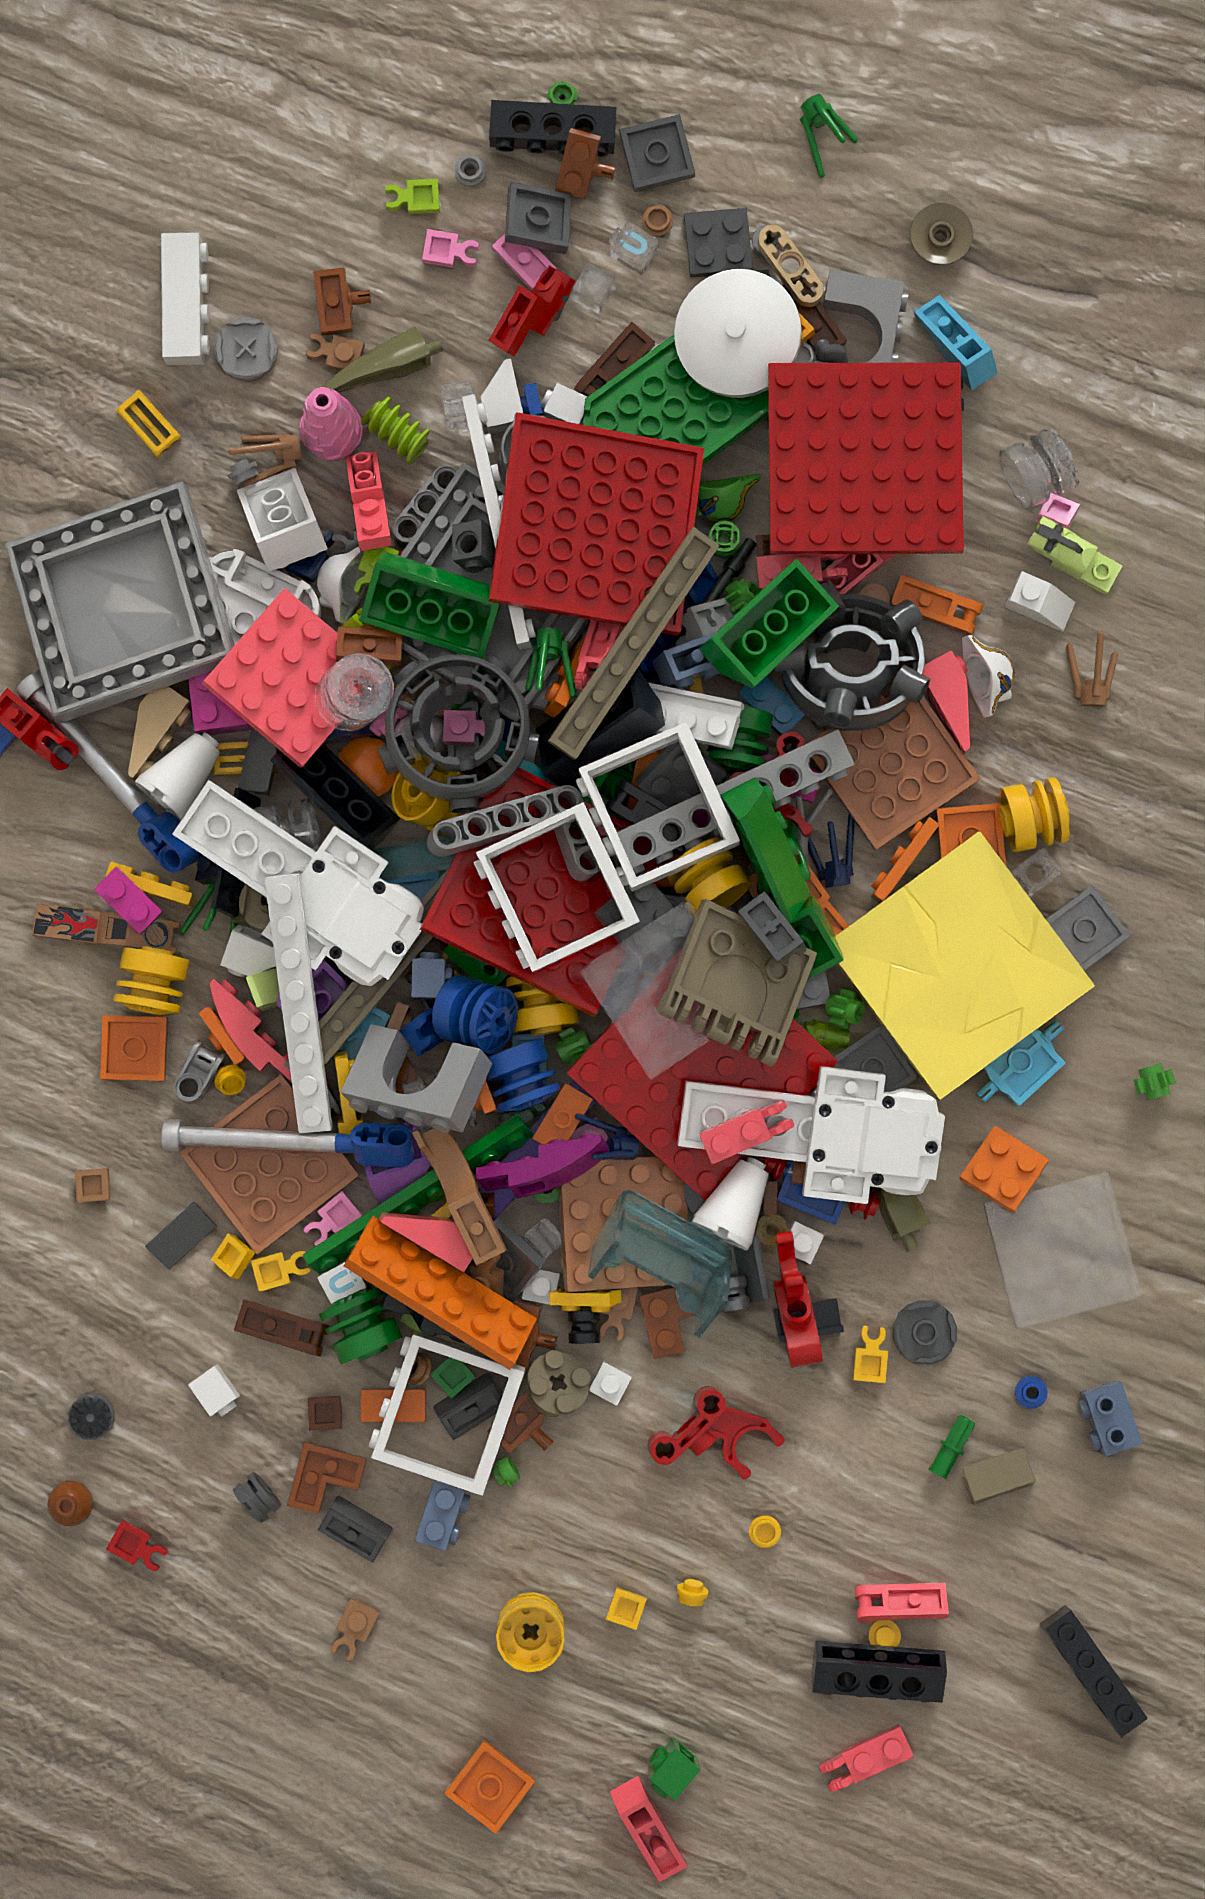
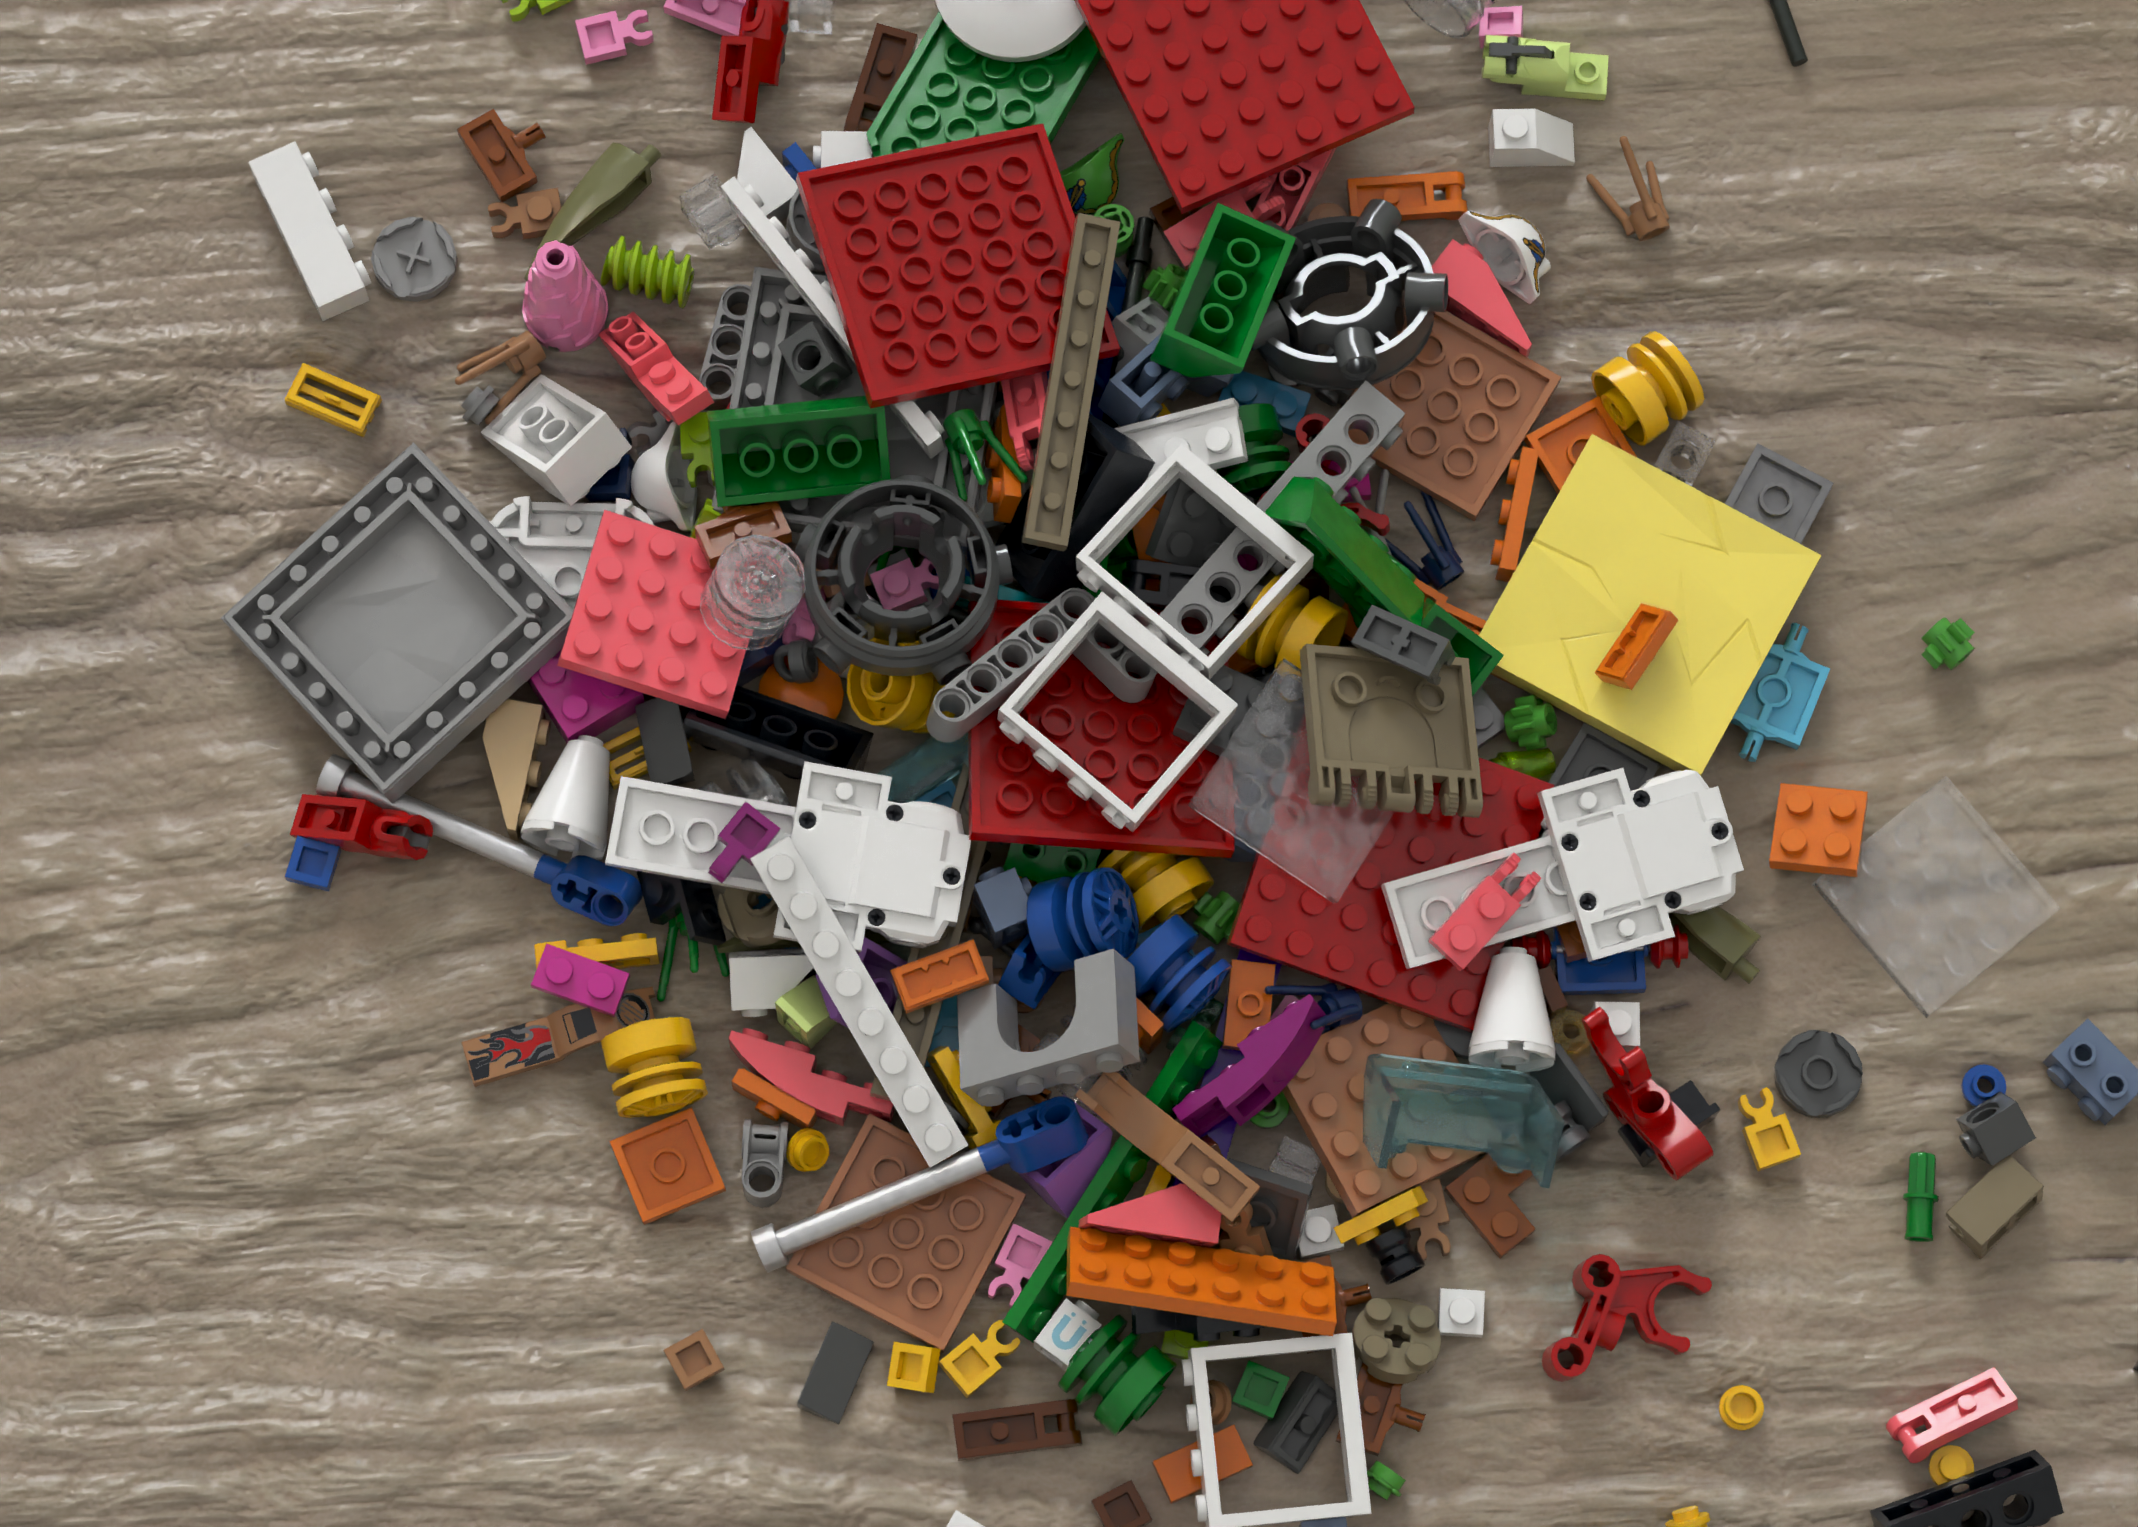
camera: 25 degrees left, 10 degrees down
(271, 859) = (744, 837): none -> magenta plate
(362, 1008) = (939, 976): none -> orange plate
(369, 749) = (801, 661): none -> dark grey tile
(937, 994) = (1636, 646): none -> orange plate
(1022, 1426) = (1994, 1129): none -> dark grey brick

